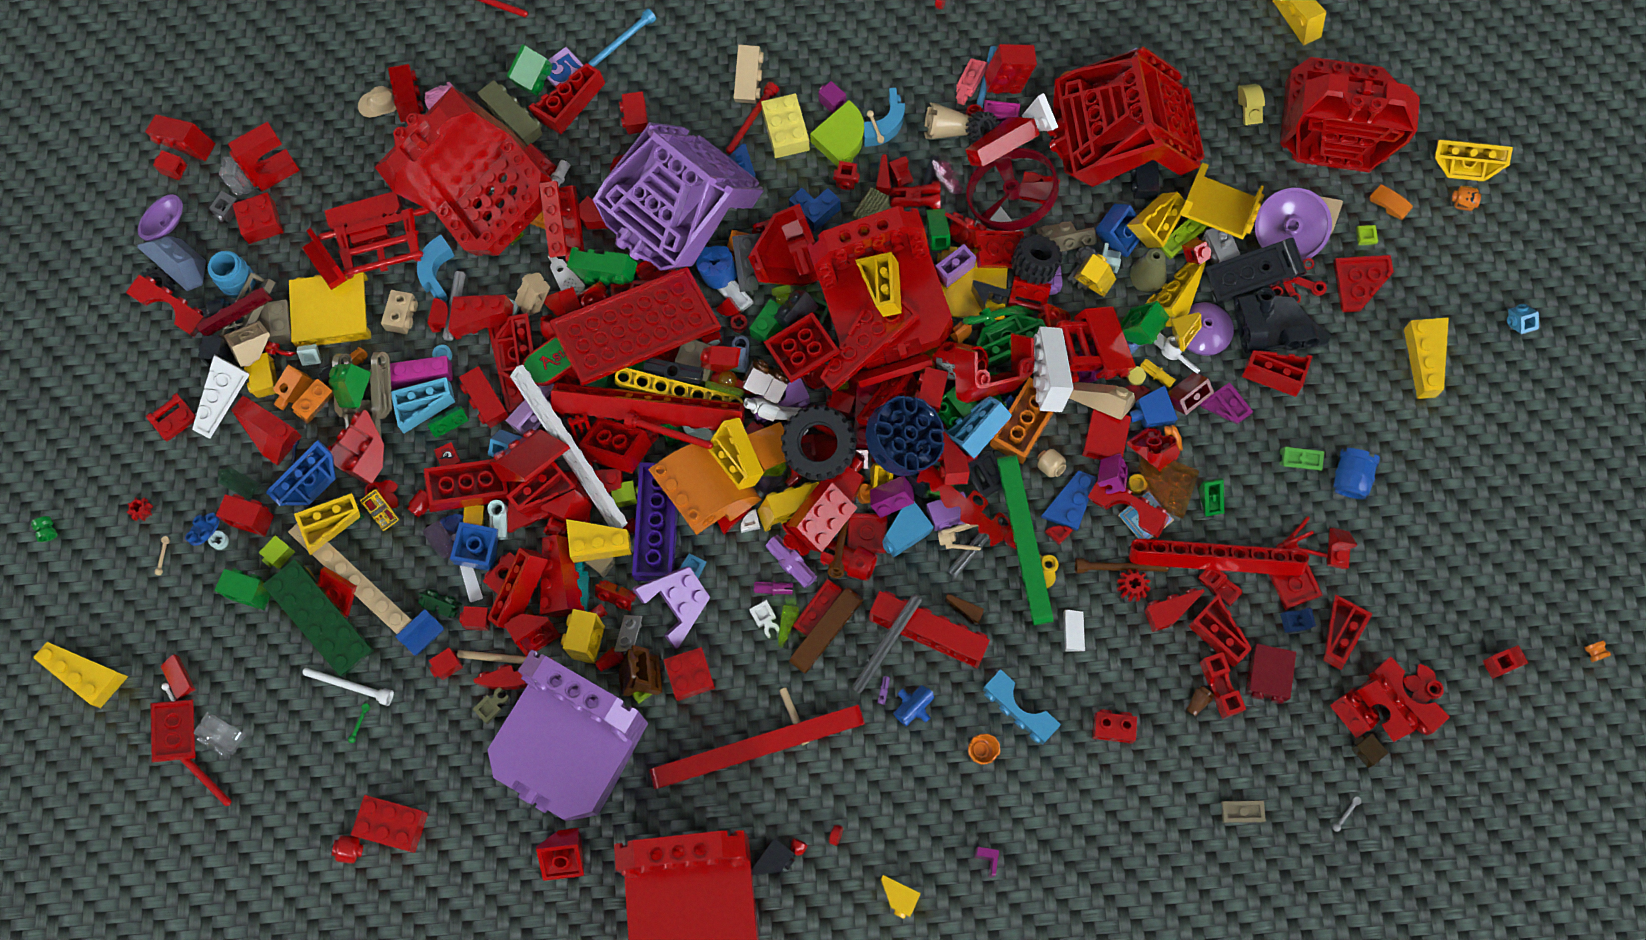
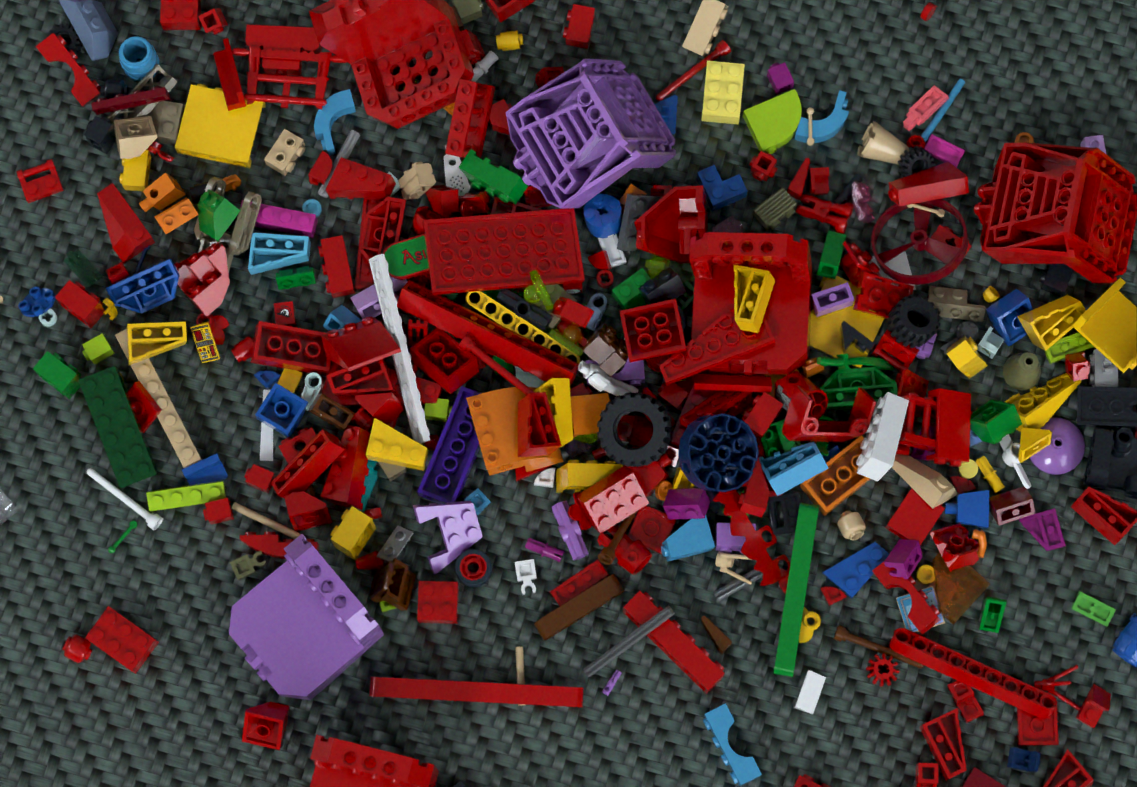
camera: 20 degrees right, 5 degrees up
(218, 394) = (92, 175): white wing -> none
(272, 475) = (117, 273): none -> red tile
(278, 511) = (111, 310): none -> yellow piece
(292, 218) = (213, 21): none -> red brick
(309, 354) = (187, 165): light aqua tile -> none
(407, 661) = (185, 495): none -> lime plate
(439, 539) = (252, 392): clear purple brick -> none
(446, 604) = (225, 445): dark green hinge -> none
(523, 530) = (331, 411): none -> reddish brown brick
(574, 146) = (509, 40): none -> yellow brick
(607, 592) = (389, 497): red hinge -> none
(679, 351) = (538, 291): none -> clear neon green tile
(708, 619) = (473, 557): none -> wheel
(725, 471) = (536, 426): none -> red wedge
(788, 618) = (547, 583): clear neon green slope -> none
(914, 705) = (633, 706): blue pin -> none
(983, 748) = (682, 770): orange hair -> none
(1010, 68) = (965, 114): red brick -> none
(1020, 161) = (940, 212): none -> tan hinge
(1041, 113) = (976, 176): white wing -> none
(1093, 217) = (990, 294): none -> yellow hinge
(1166, 613) = (905, 707): red slope -> none

